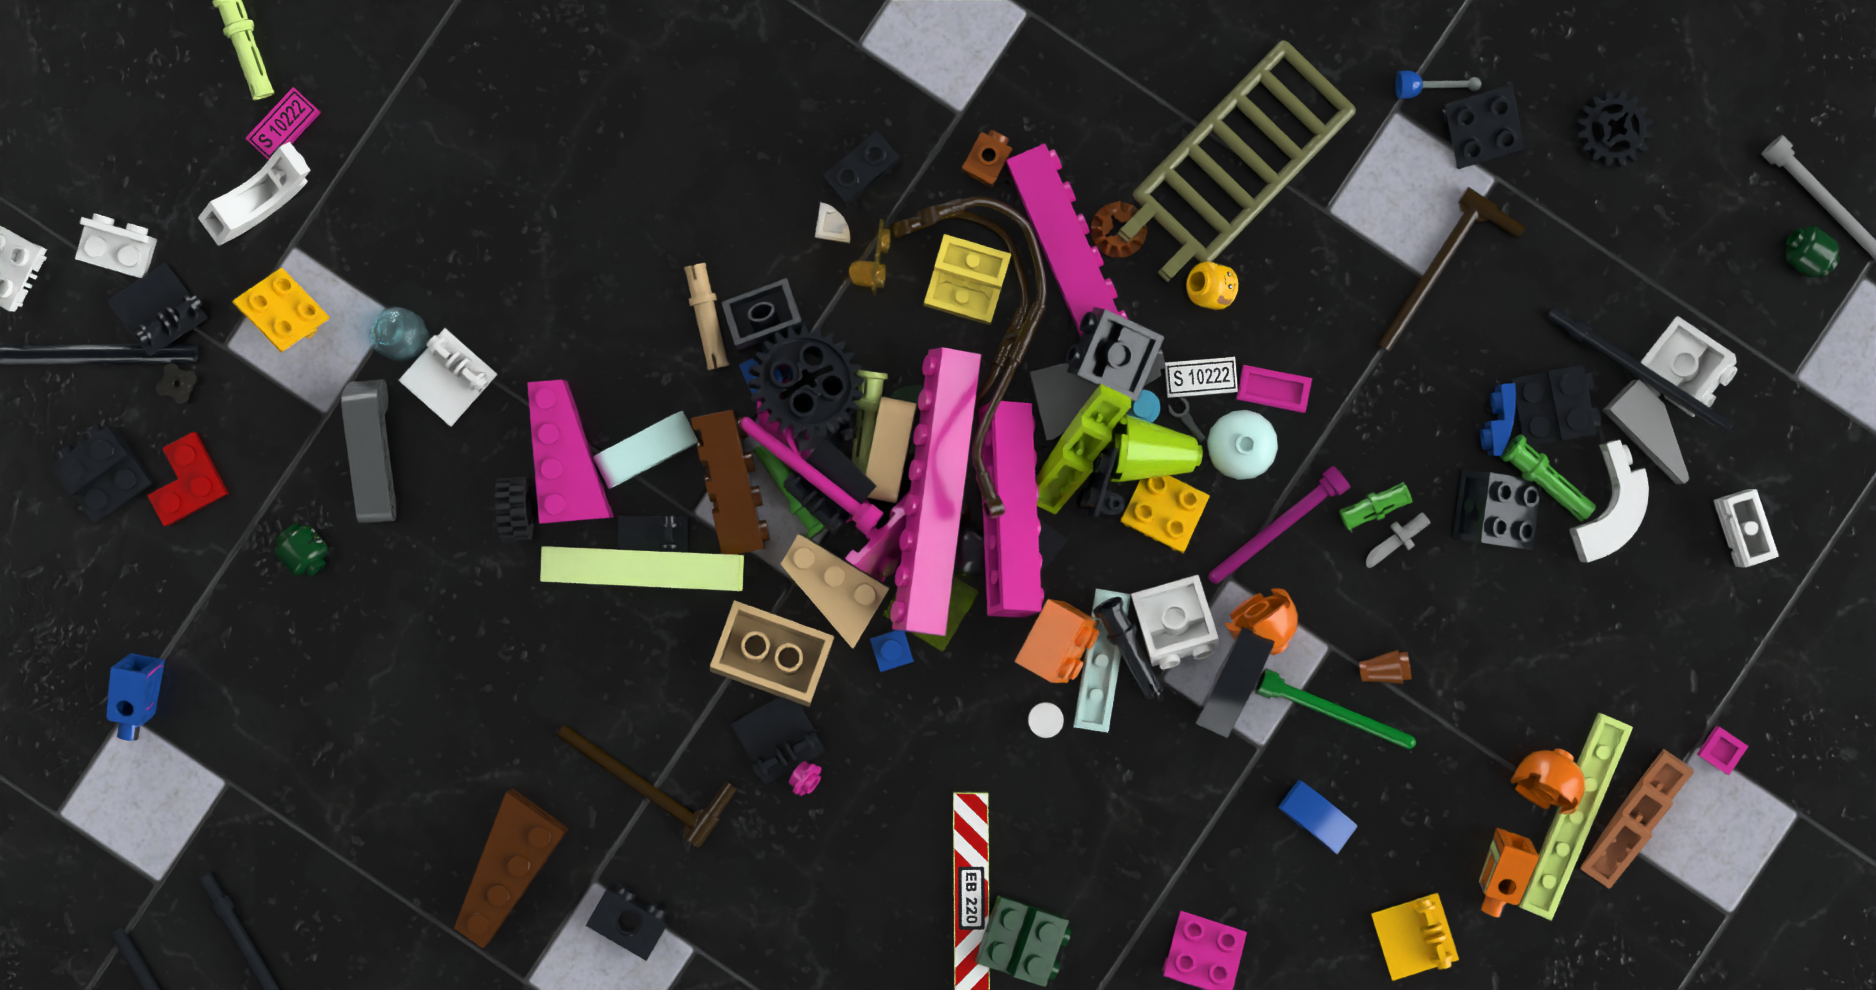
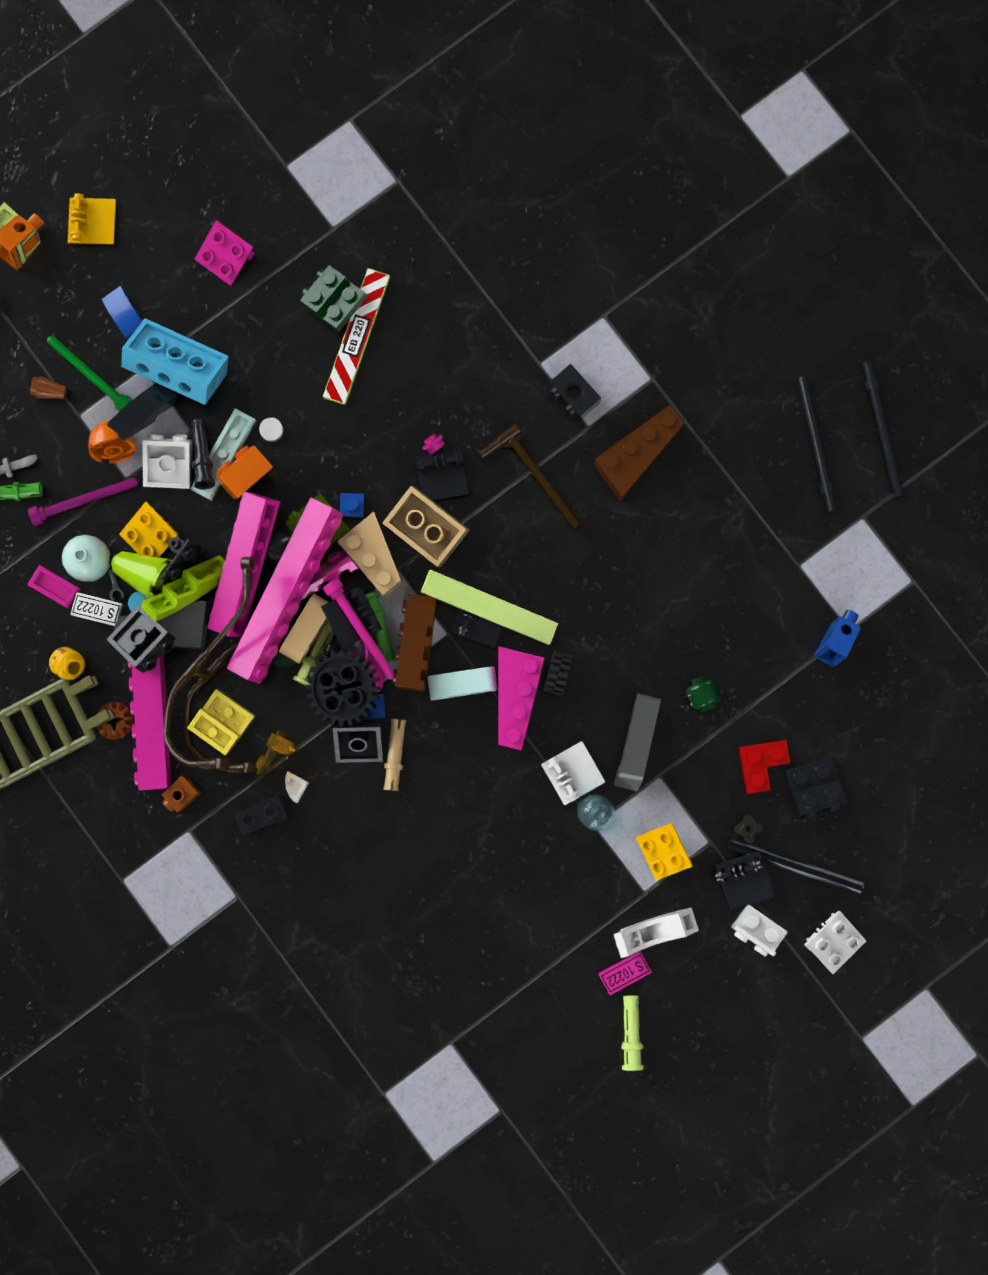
camera: 160 degrees left, 5 degrees down
(1214, 768) = (174, 361): none -> medium azure brick

